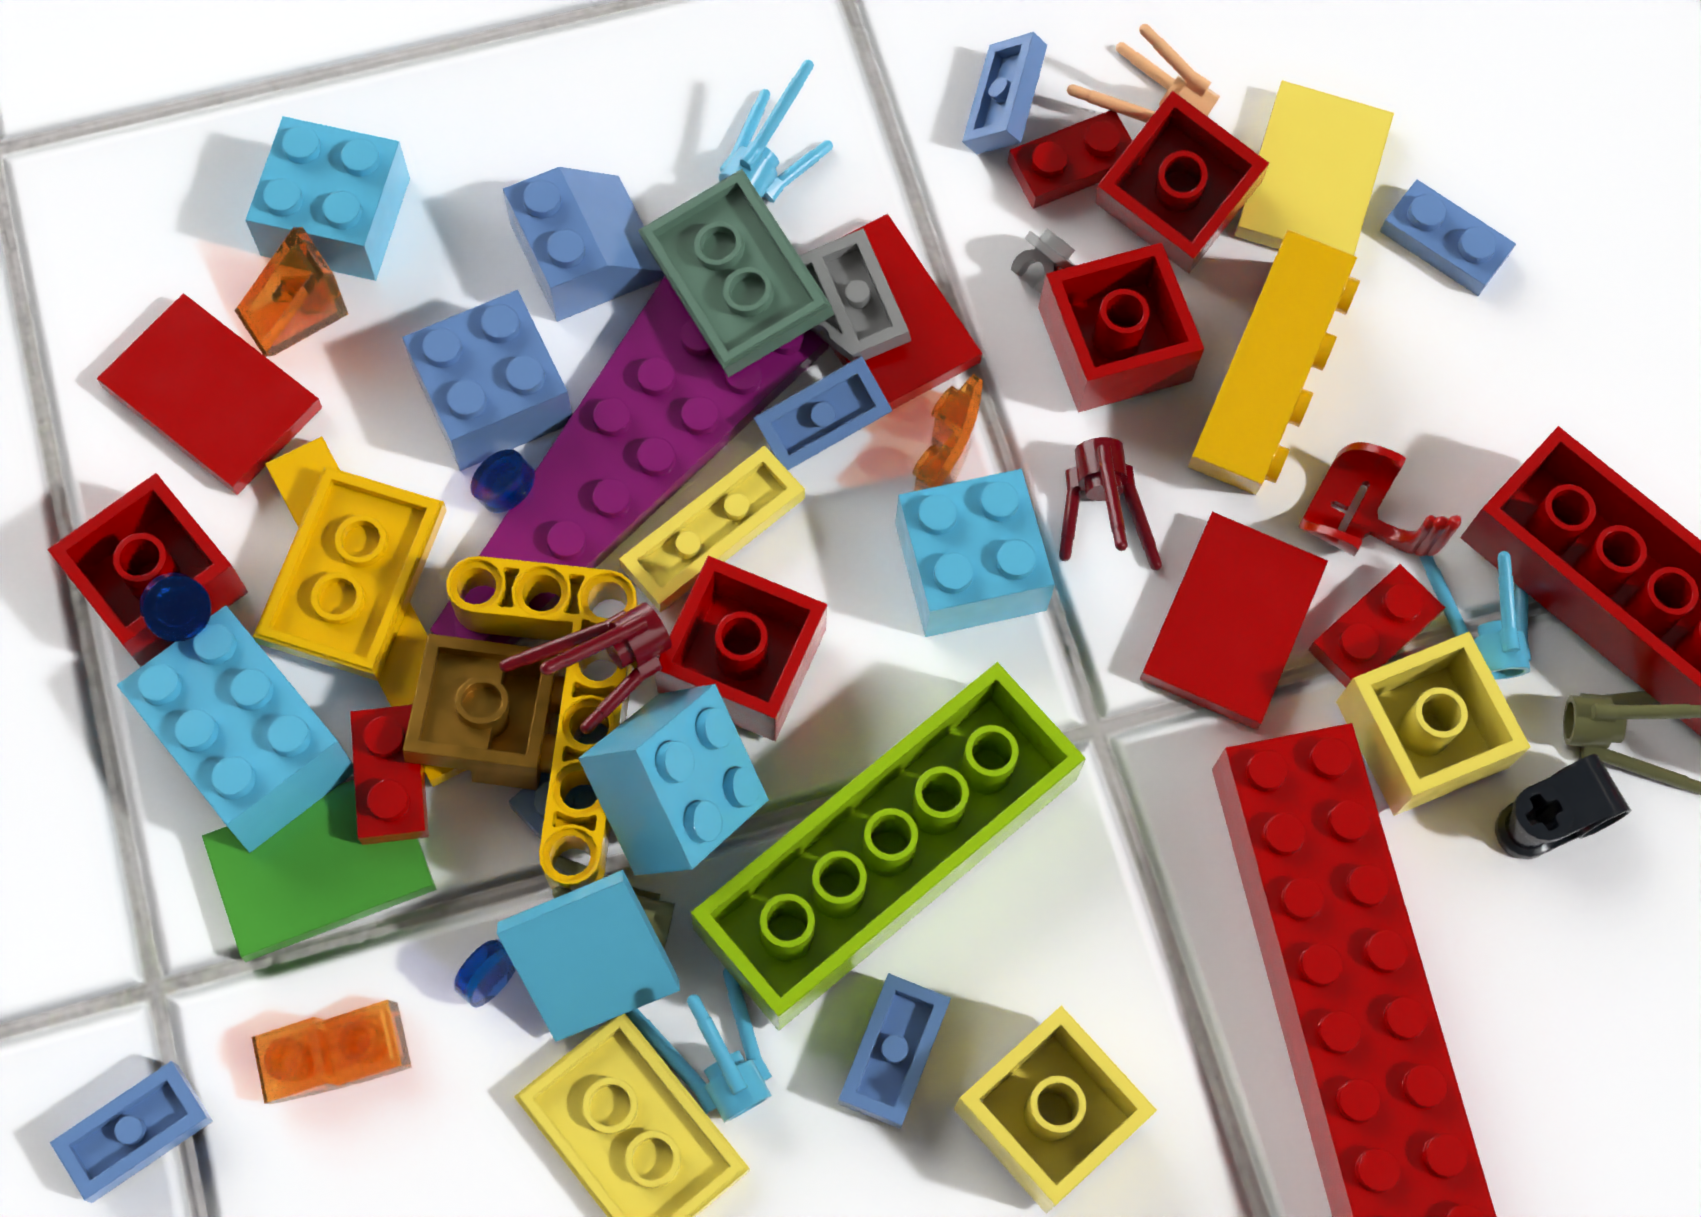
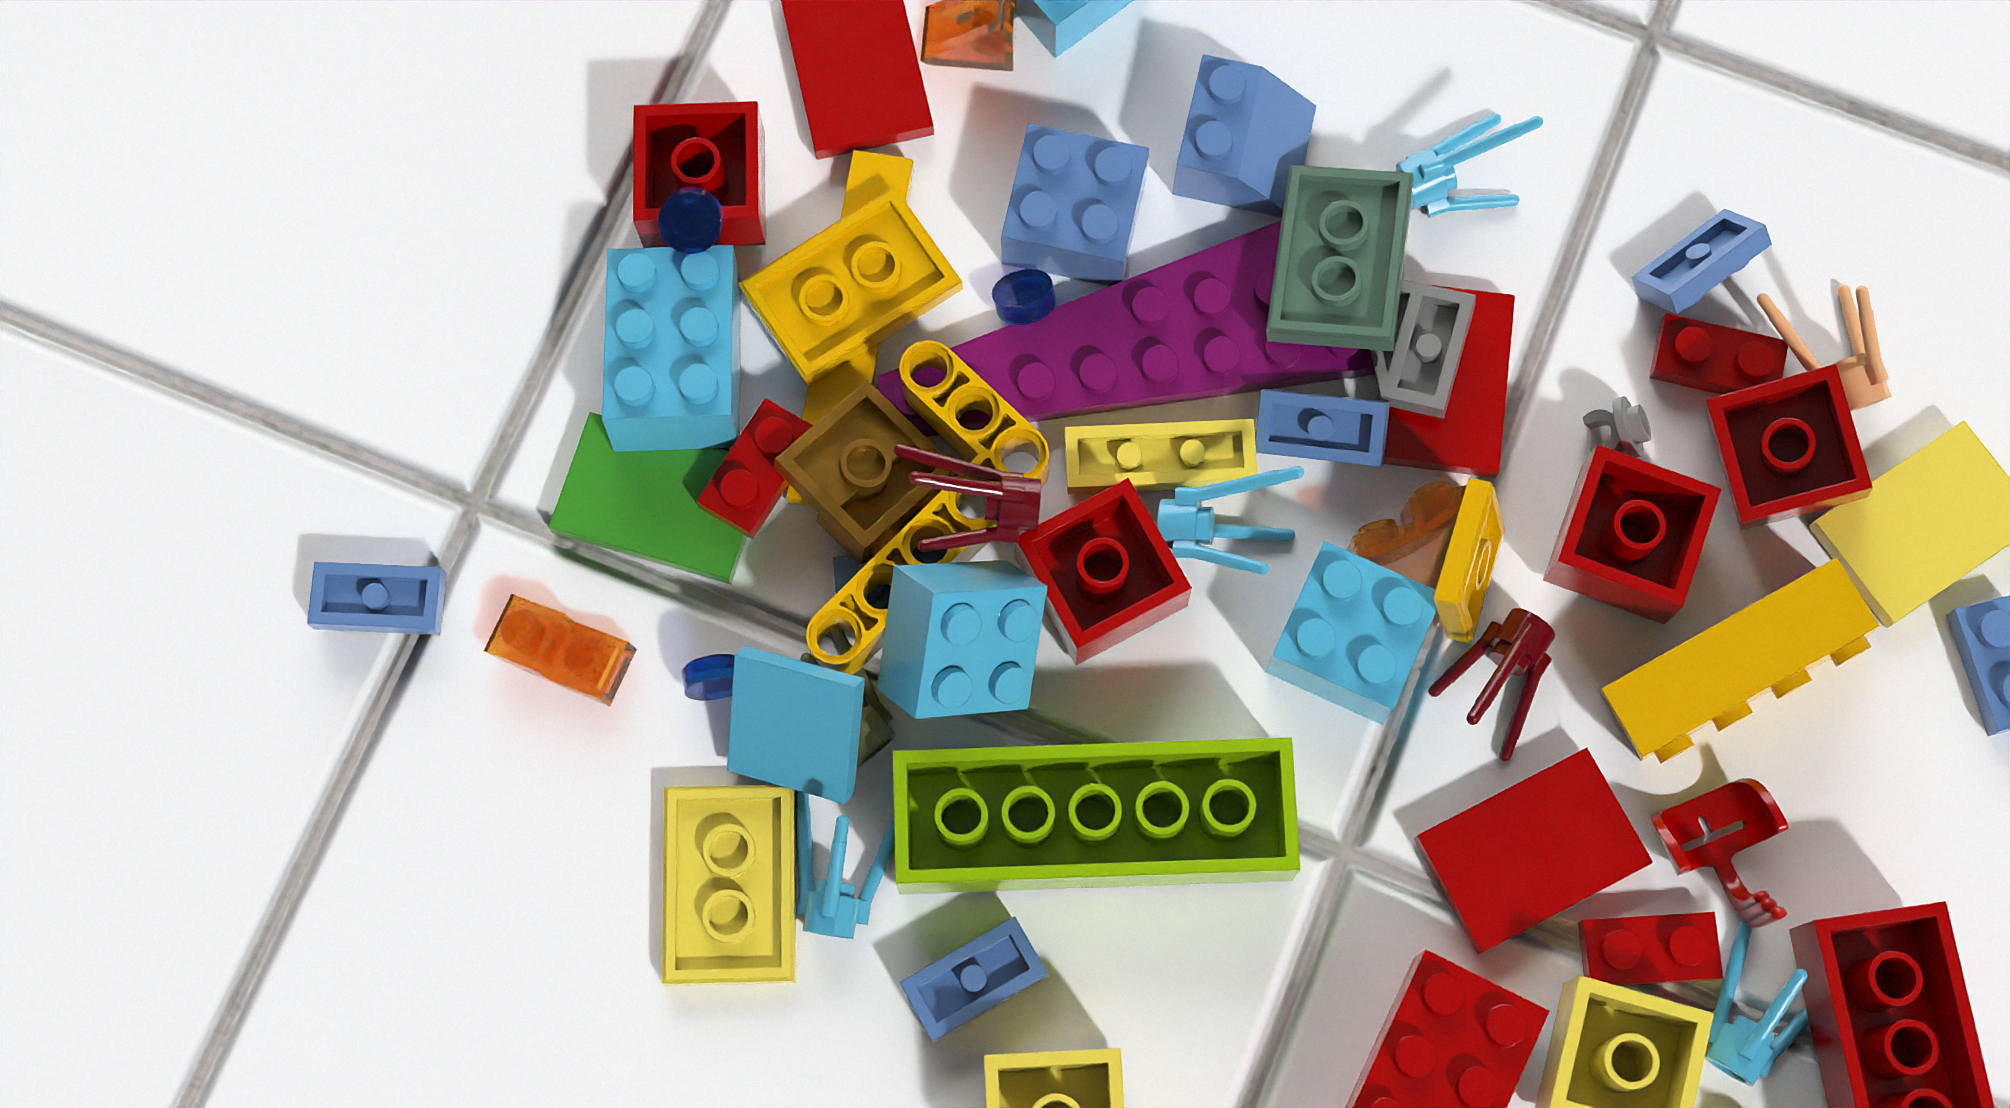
camera: 45 degrees right, 5 degrees up
(782, 560) = (1189, 524): none -> medium azure plant
(1019, 430) = (1469, 561): none -> yellow tile

